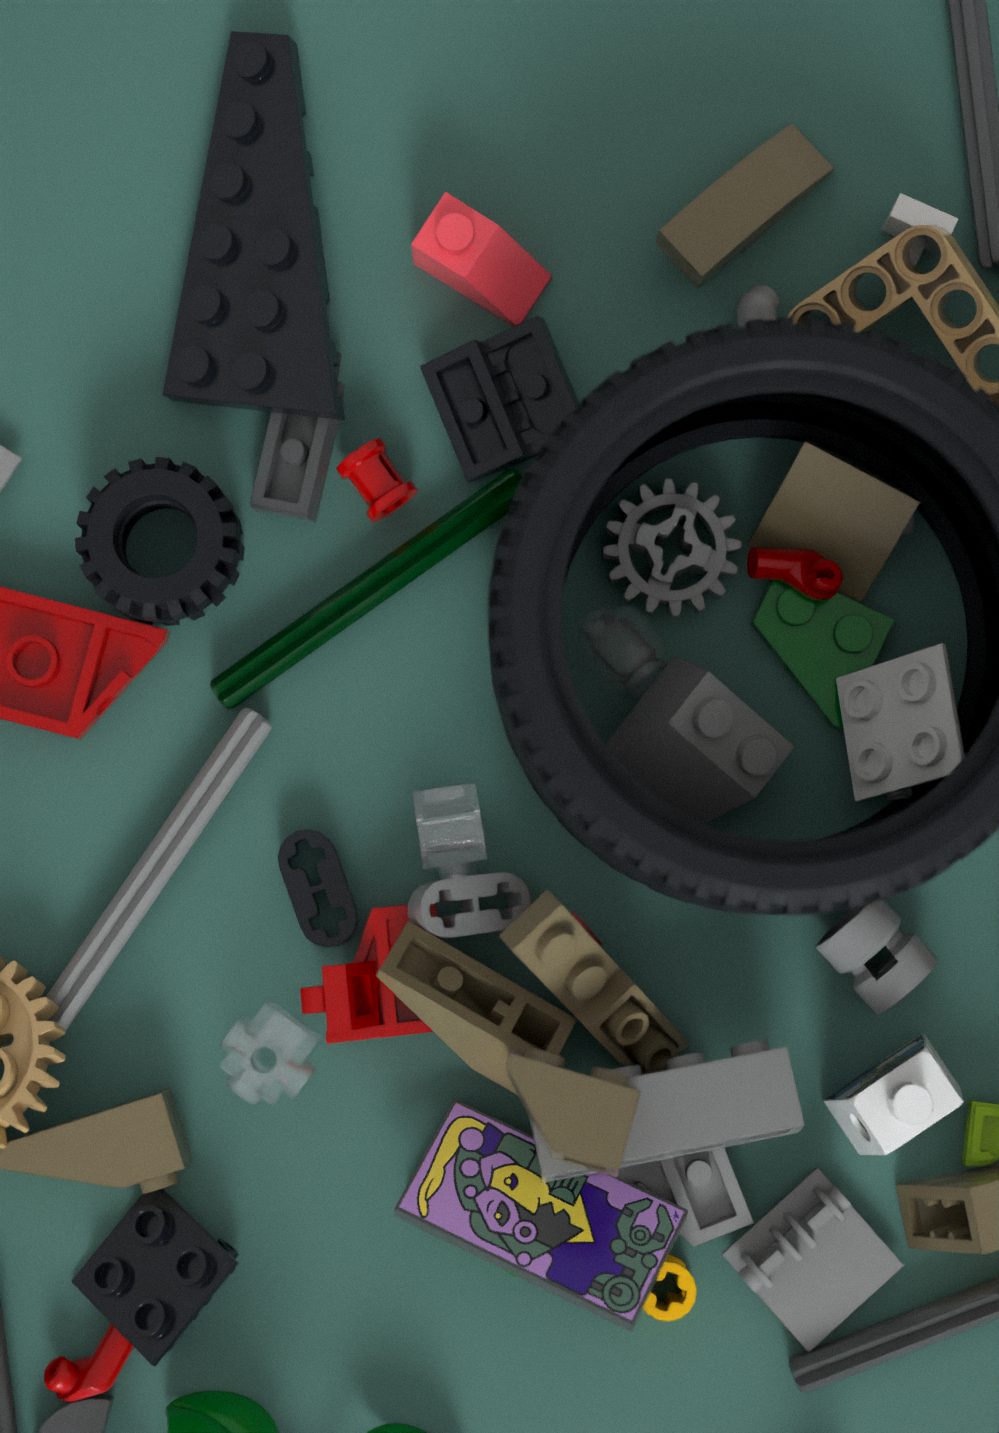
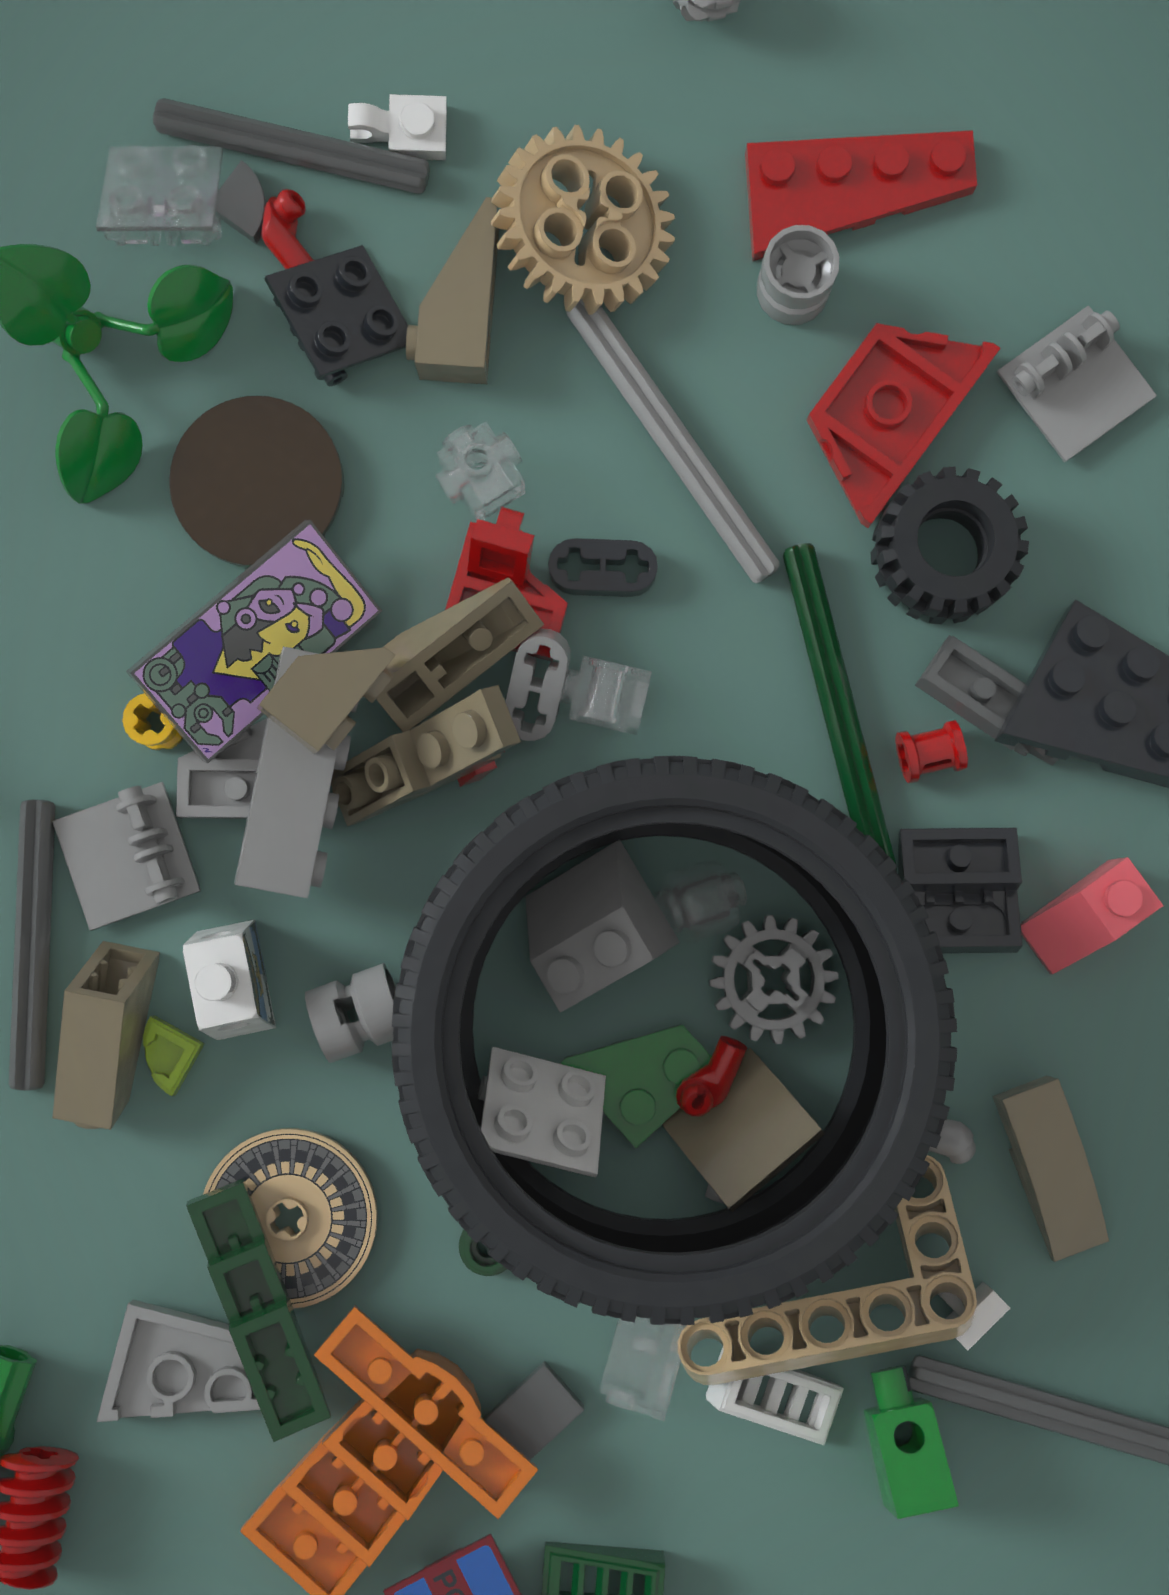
camera: 110 degrees right, 0 degrees up
(367, 1291) = (253, 476): none -> dark brown tile

